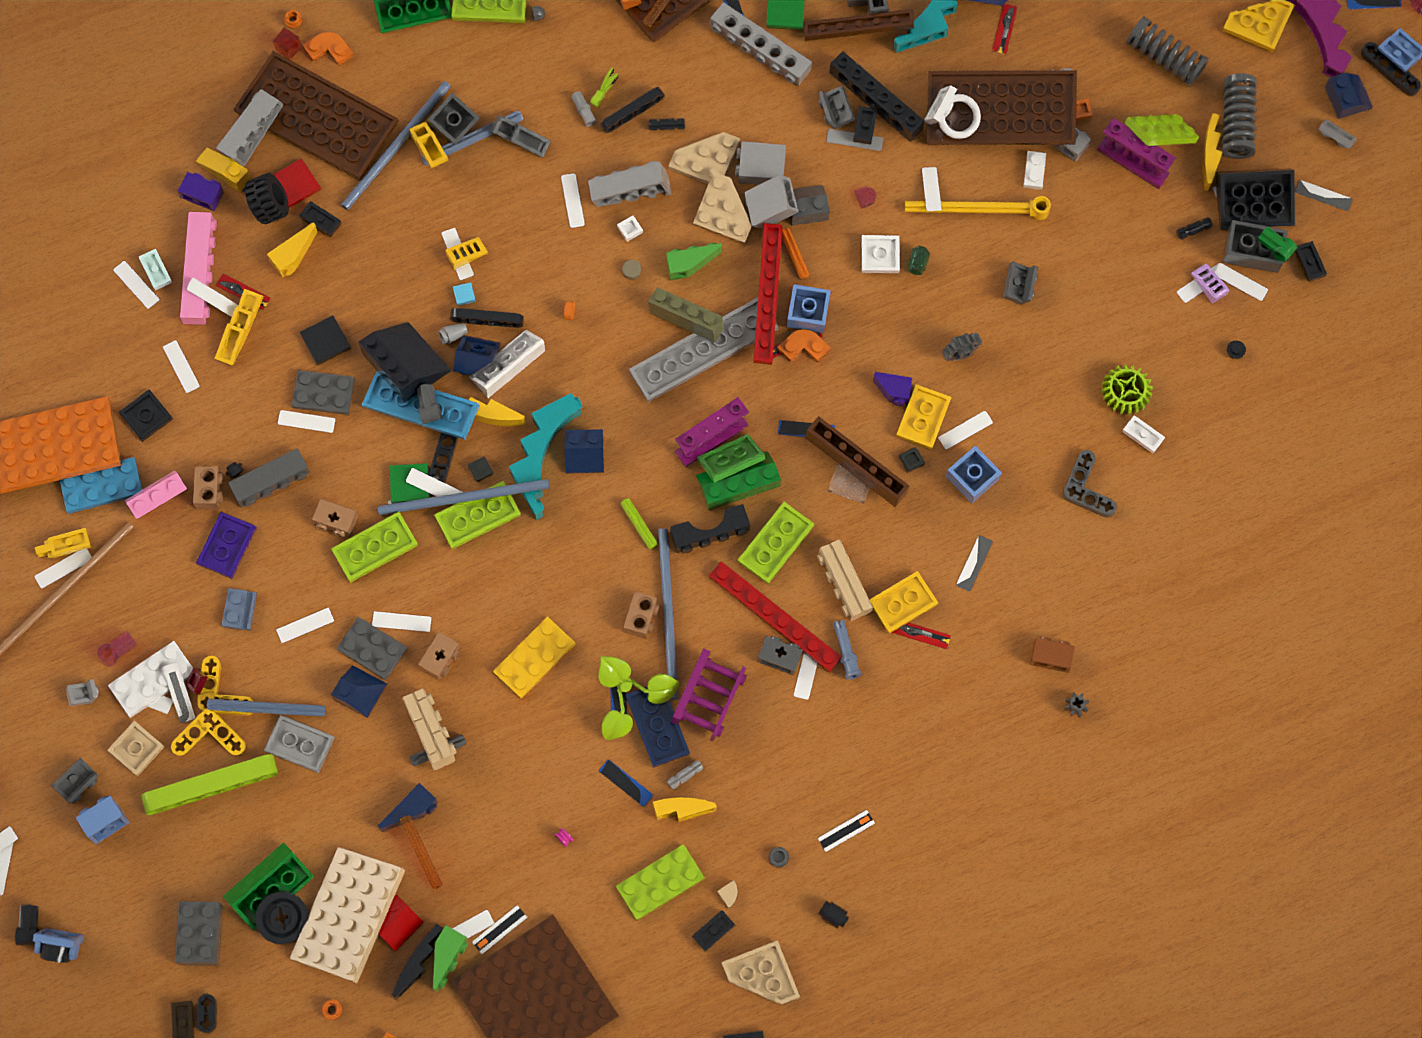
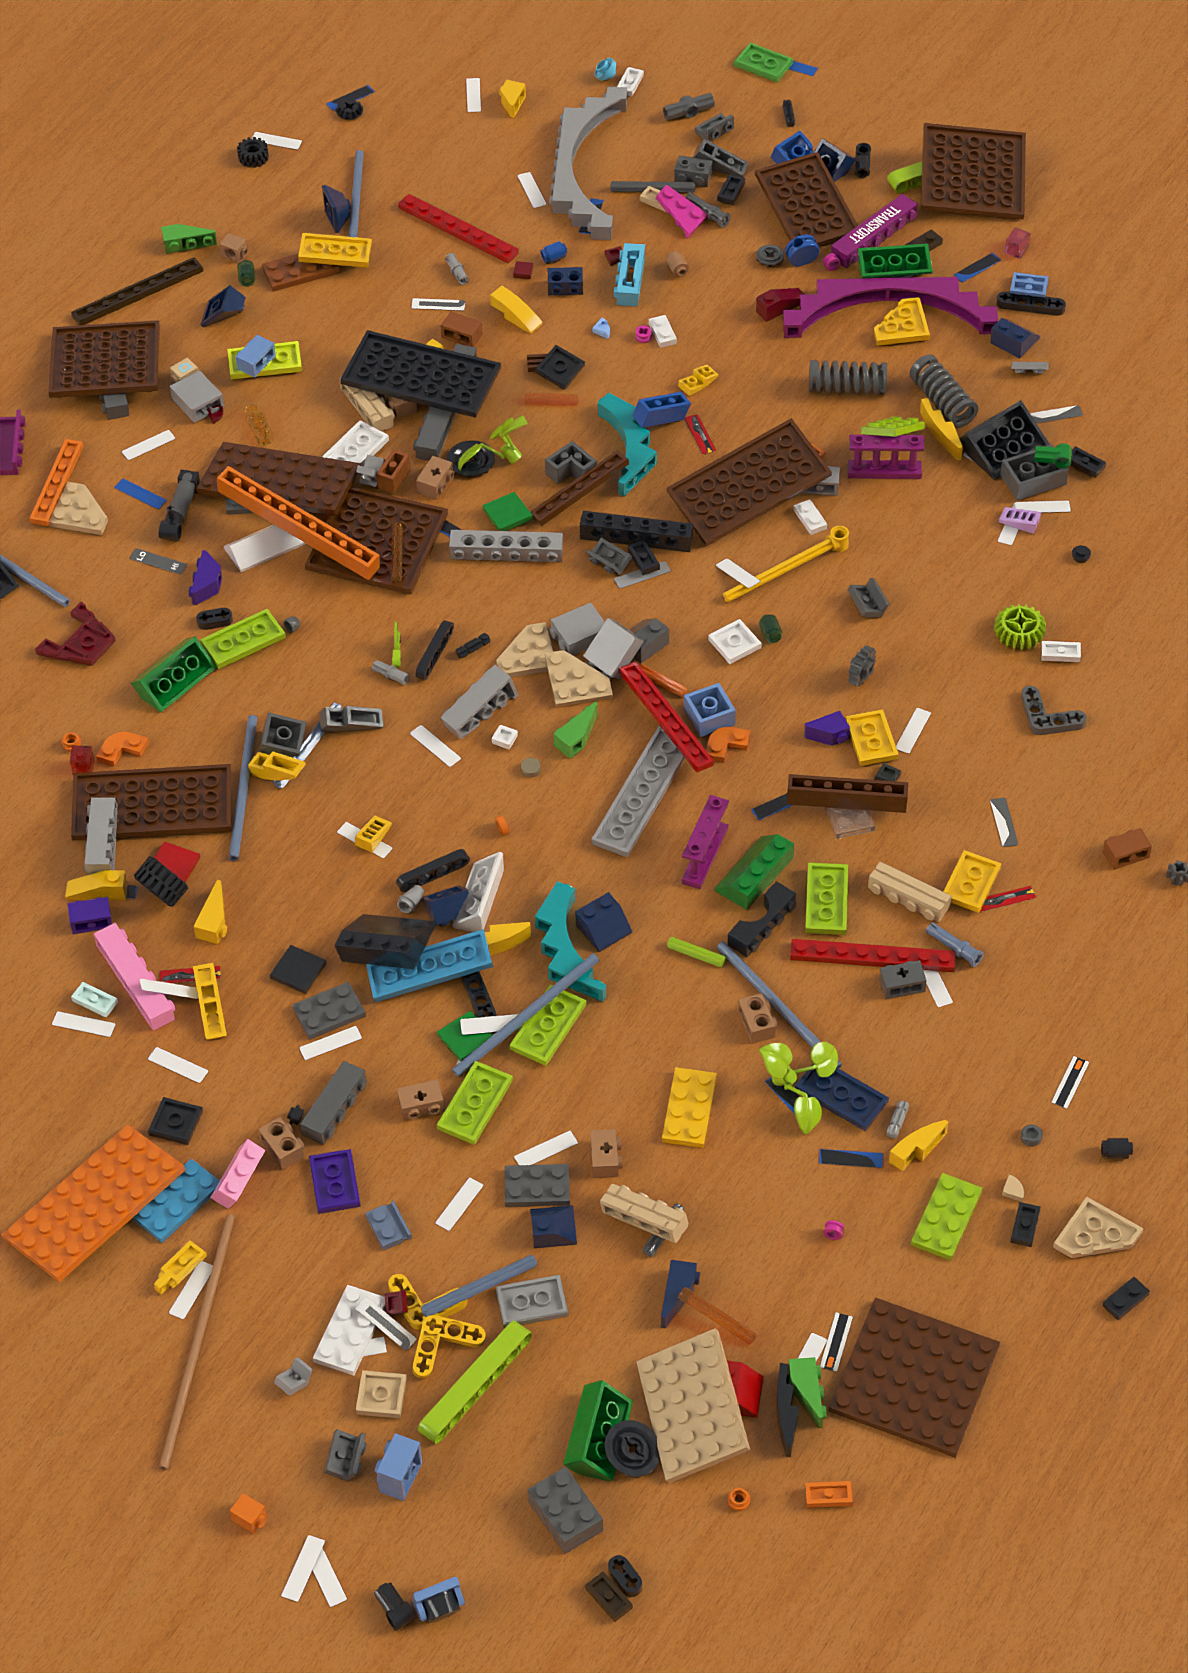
camera: 30 degrees left, 20 degrees down
(118, 647) = (297, 1322): clear pink piece -> none
(322, 219) = (229, 877): black plate -> none
(429, 408) = (442, 957): dark grey piece -> none
(464, 294) = (396, 865): medium azure tile -> none
(480, 469) = (521, 990): pearl dark grey tile -> none
(686, 314) = (609, 769): olive brick -> none
(689, 696) = (852, 1052): magenta fence -> none
(731, 458) = (736, 854): bright green tile -> none
(866, 196) = (686, 608): clear pink tile -> none
(943, 106) = (701, 502): white tile -> none
(973, 474) = (950, 753): medium blue brick -> none
(1194, 228) = (974, 488): black axle -> none

